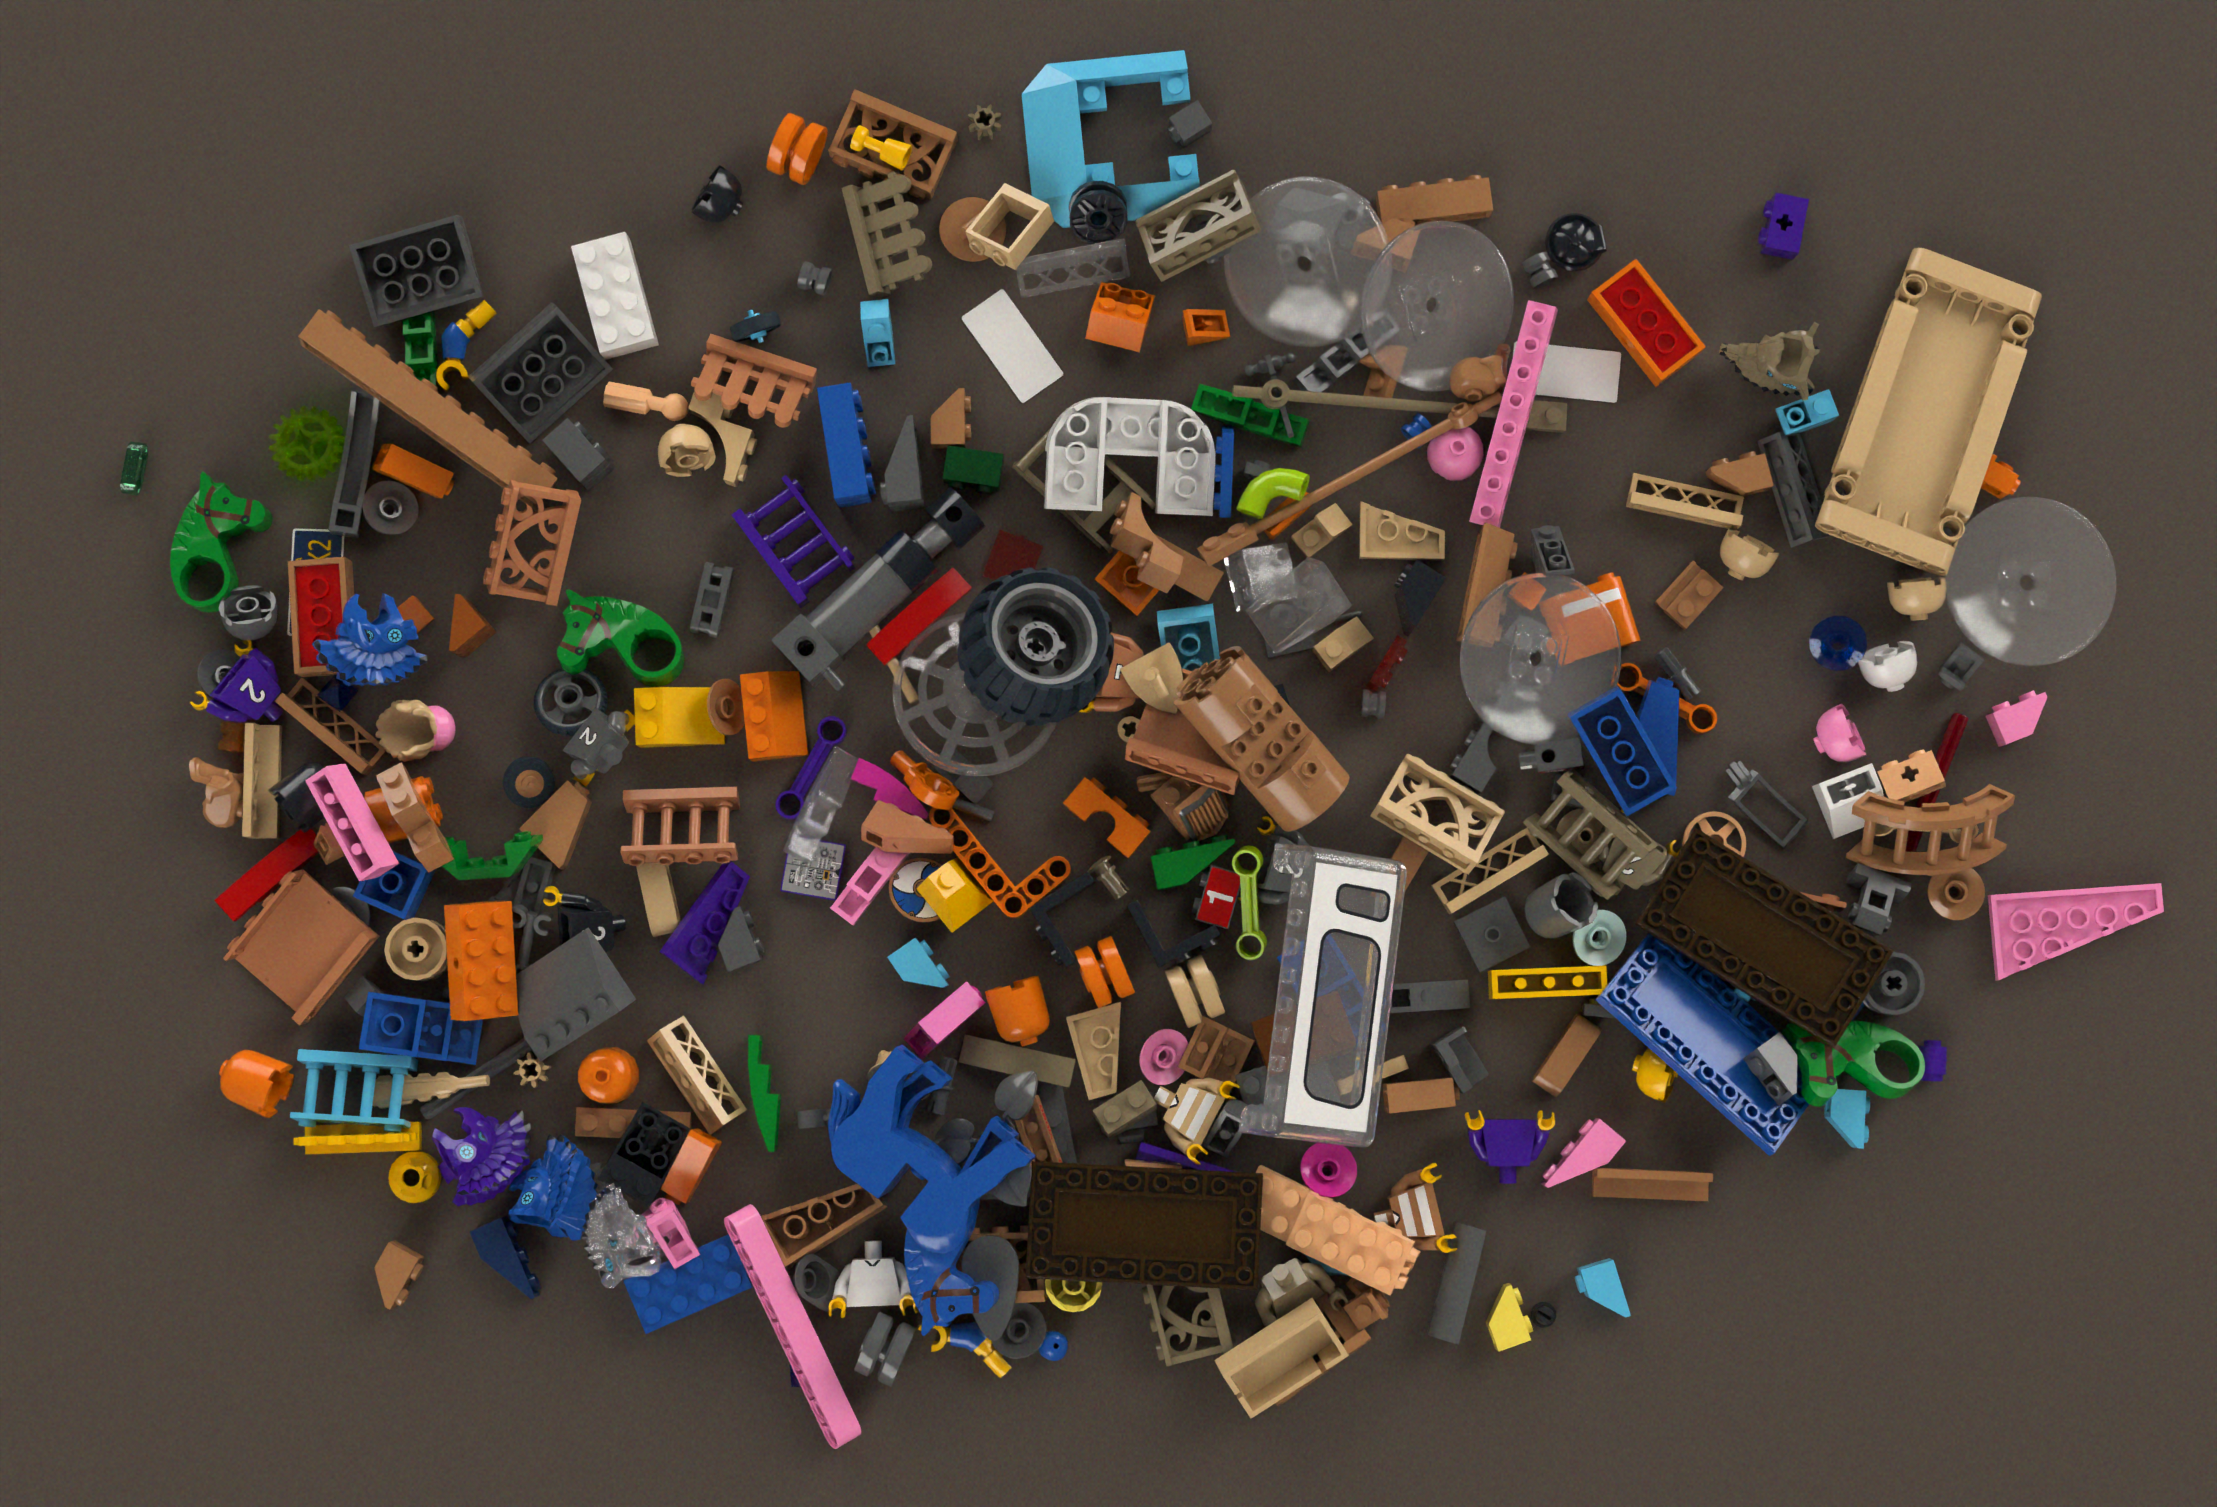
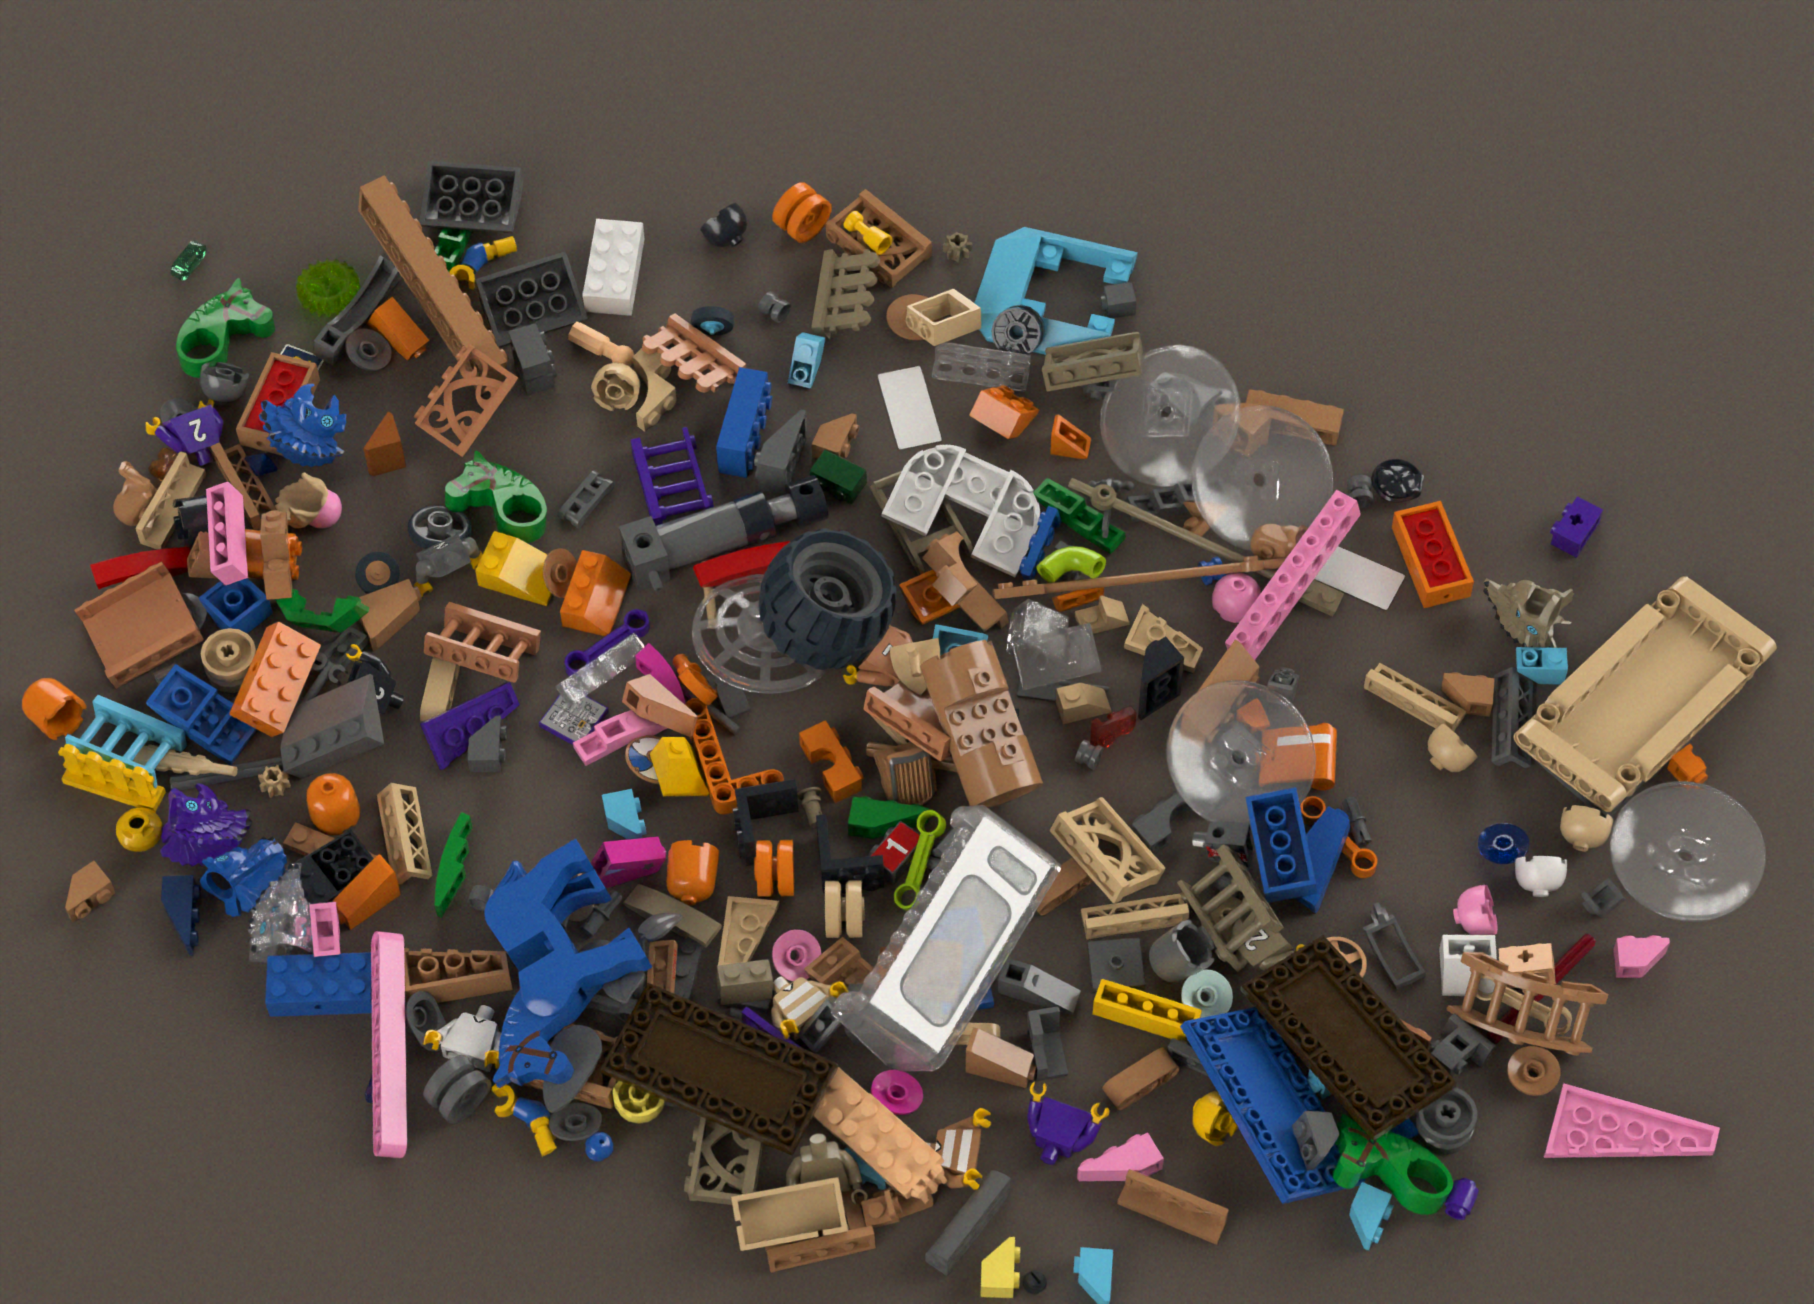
camera: 20 degrees right, 25 degrees down
(415, 610) = (351, 433): orange slope -> none
(1688, 595) = (1390, 768): medium nougat plate -> none

